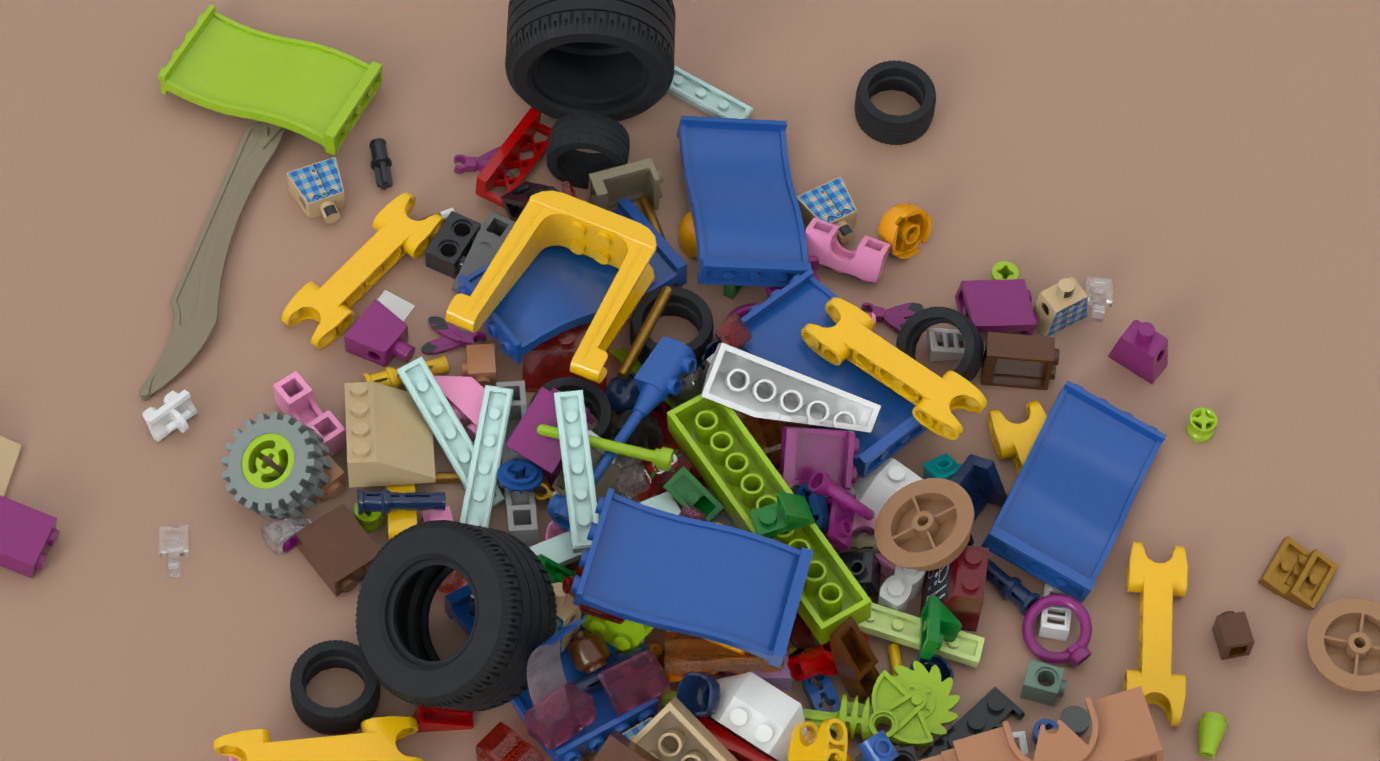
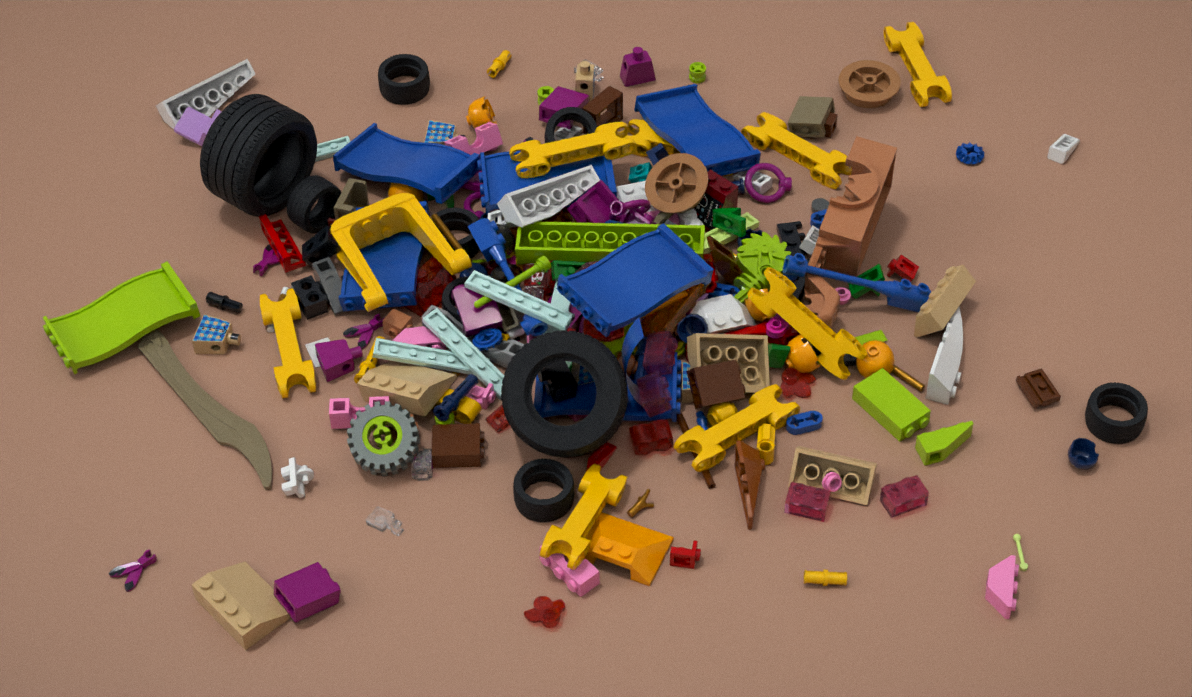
camera: 50 degrees left, 10 degrees down
(733, 332) = (493, 195): clear red slope -> none
(781, 517) = (623, 232): green slope -> none
(1019, 188) = (499, 63): none -> yellow pin
(1036, 692) = (790, 205): sand green brick -> none
(1227, 609) = (810, 116): none -> dark tan panel
(1298, 574) = (809, 83): pearl gold slope -> none

